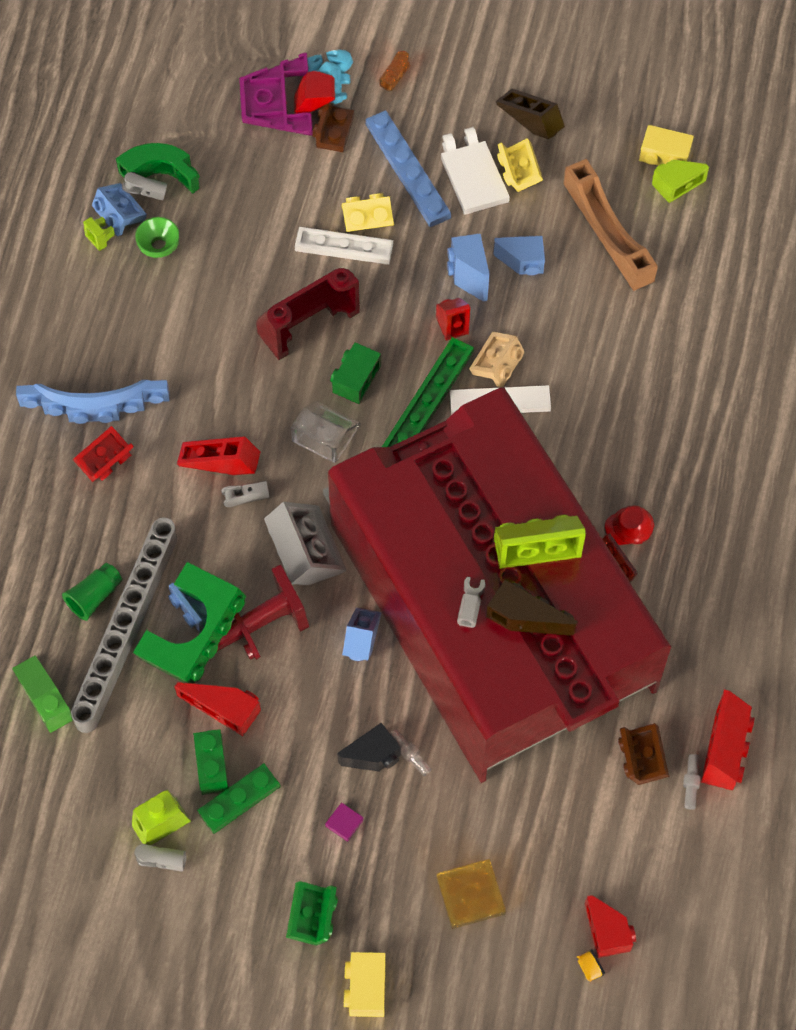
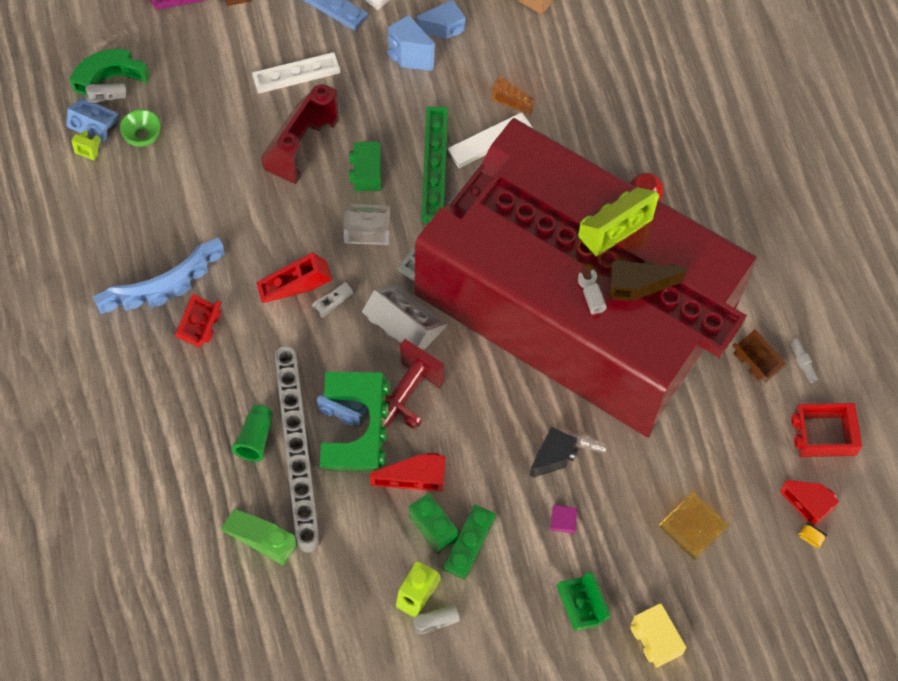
camera: 30 degrees left, 0 degrees up
(361, 634) = (492, 367): medium blue slope -> none
(367, 213) = (302, 39): light yellow bracket -> none
(453, 318) = (419, 90): red slope -> none
(498, 358) = (470, 107): tan bracket -> none
(544, 361) = (511, 96): none -> clear orange slope
(677, 843) = (850, 427): none -> red window
(728, 742) = (813, 318): red slope -> none

